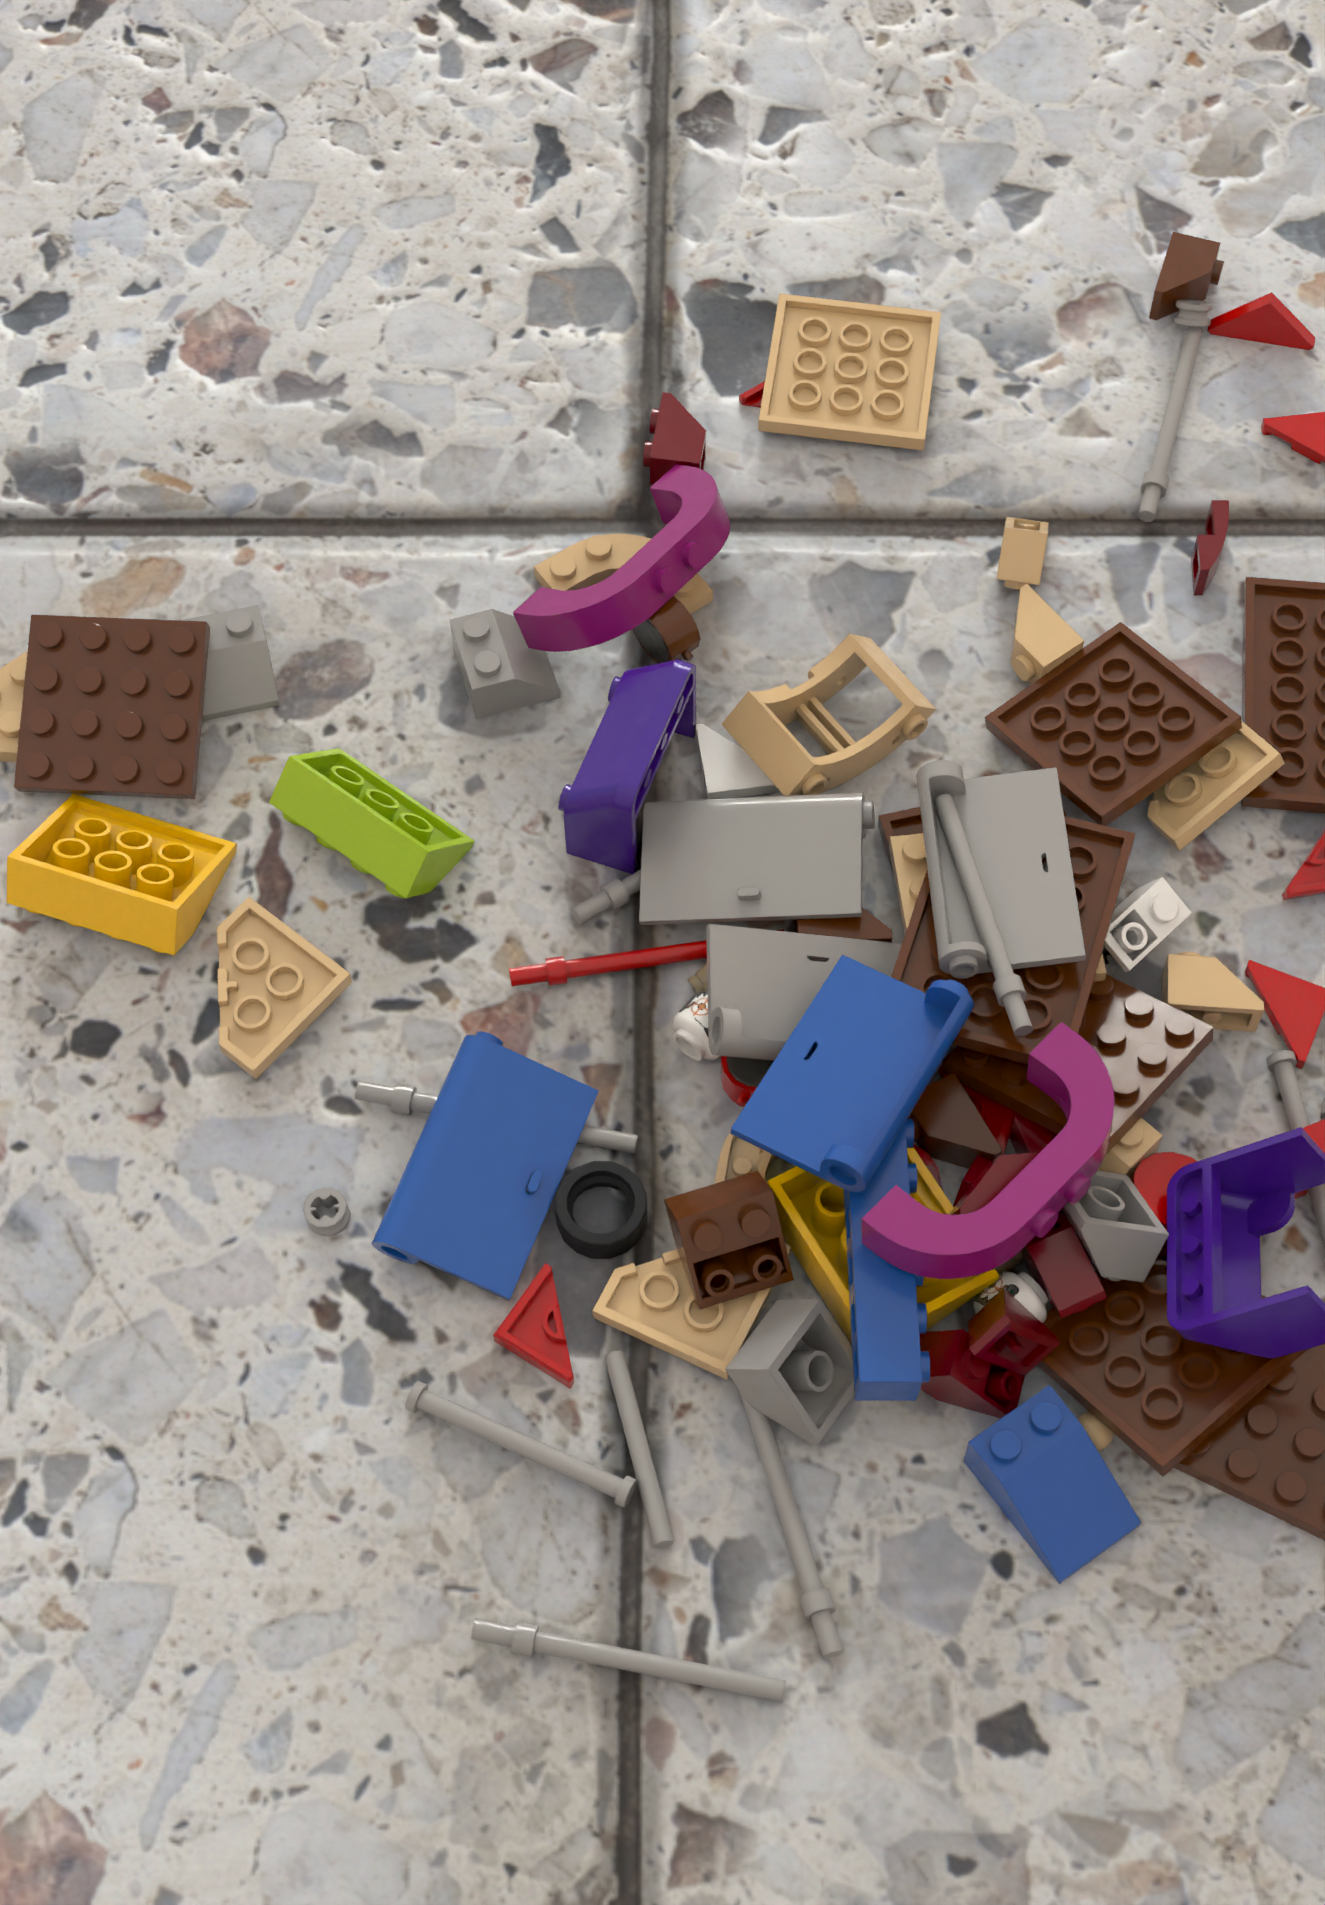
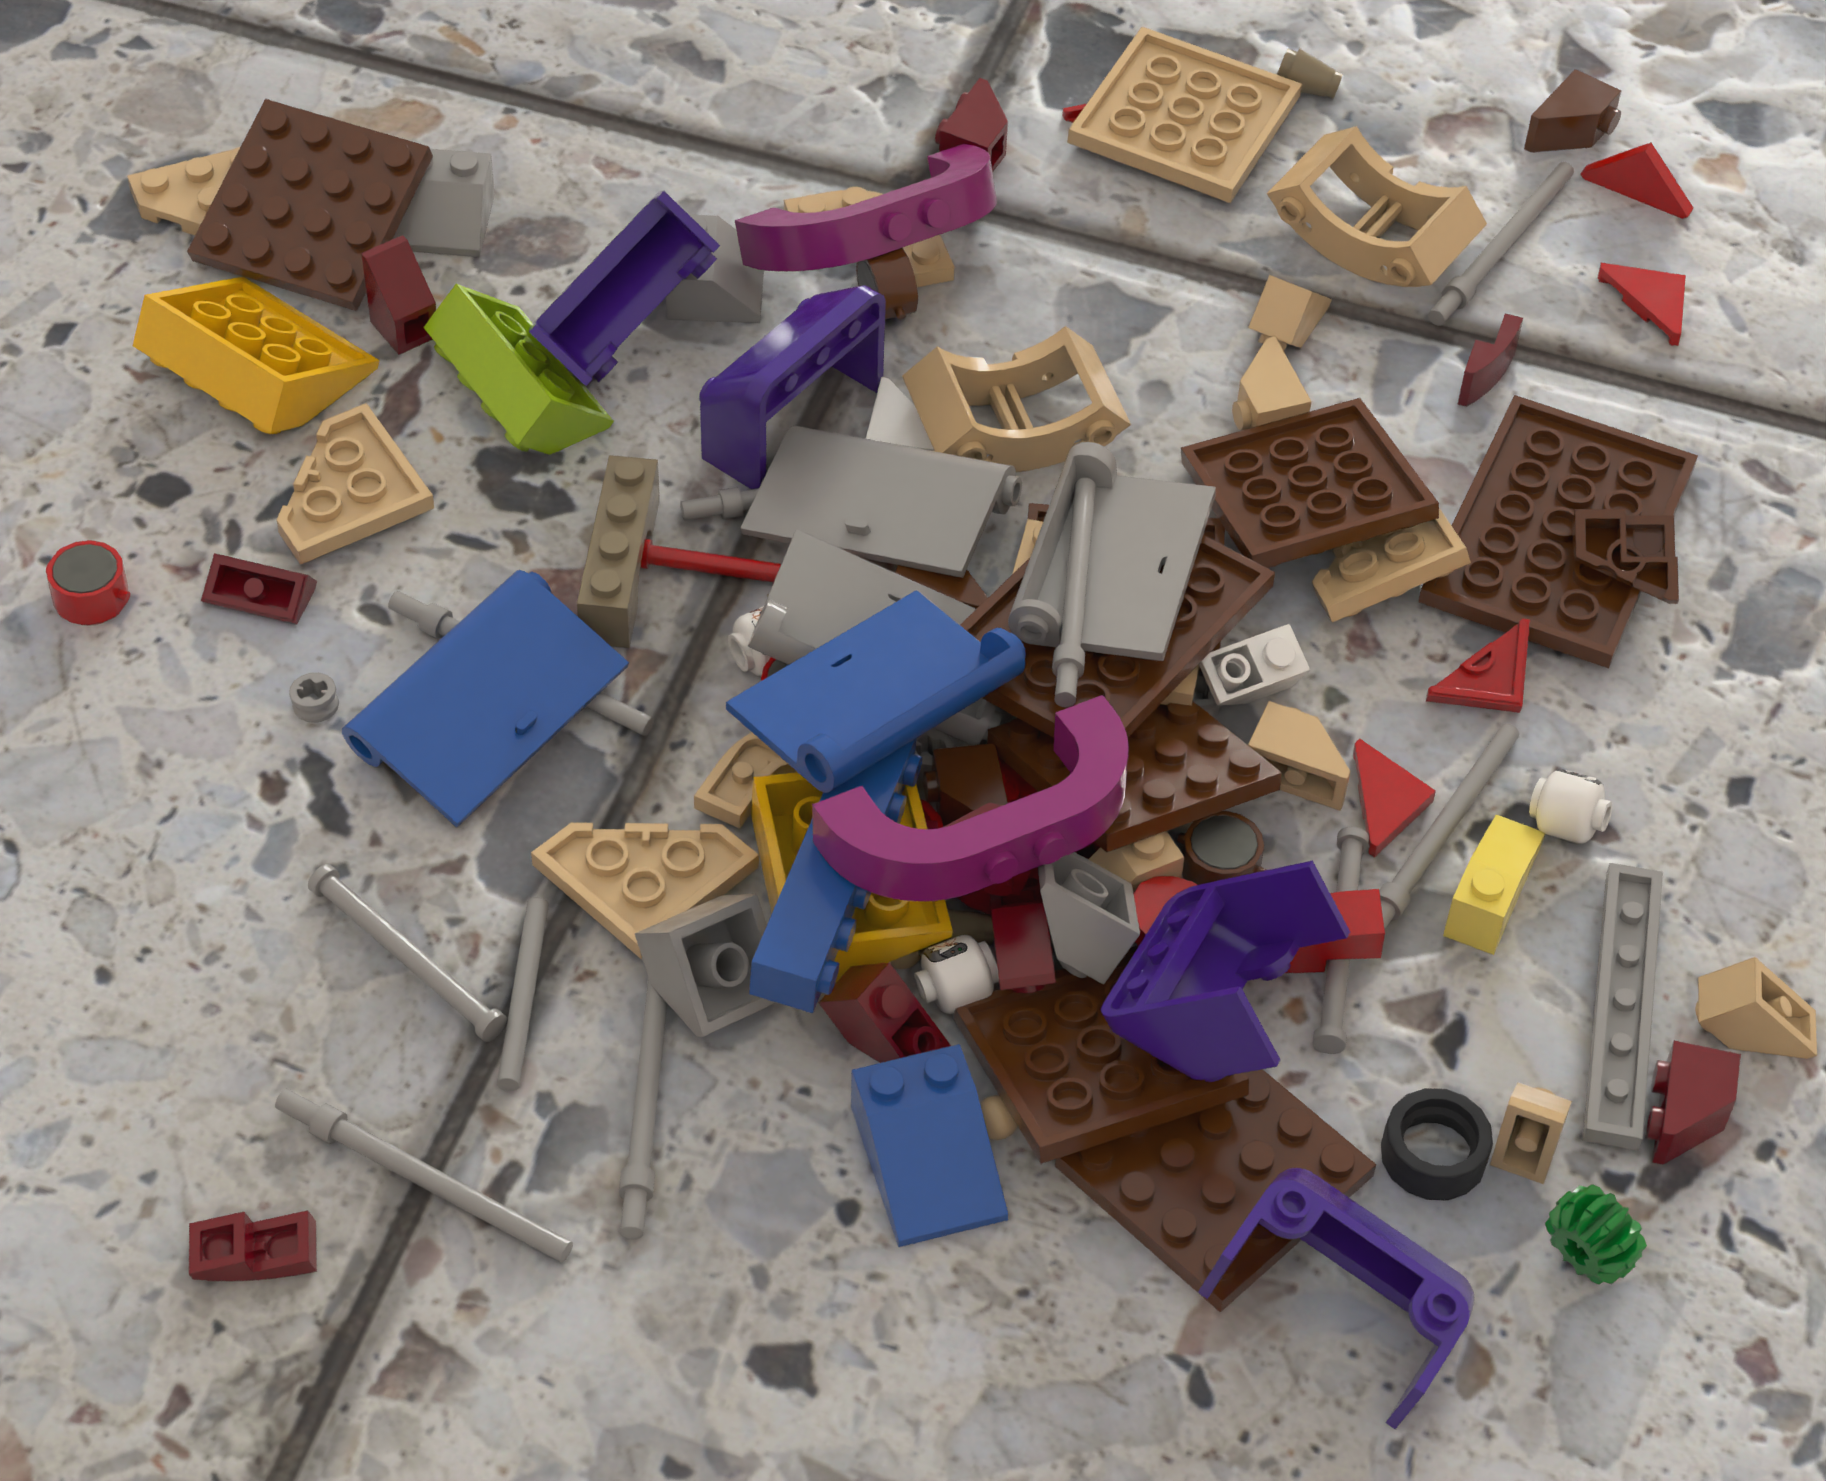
camera: 15 degrees right, 10 degrees down
(72, 1163) = (87, 582): none -> piece
(228, 1117) = (257, 589): none -> dark red slope
(234, 778) = (397, 294): none -> dark red slope
(435, 711) = (623, 287): none -> dark purple windscreen
(510, 1785) = (246, 1250): none -> dark red slope
(537, 1331) = (472, 858): red tile -> none
(541, 976) = (616, 546): none -> dark tan arch
(601, 1175) = (586, 801): black tyre -> none
(729, 1239) = (693, 823): reddish brown slope -> none
(941, 297) = (1312, 73): none -> dark tan cone
(1009, 1335) = (939, 988): dark red slope -> none
(1114, 409) = (1443, 215): none -> tan window
(1186, 1115) = (1221, 848): none -> piece
(1193, 312) = (1568, 150): light grey bush -> none

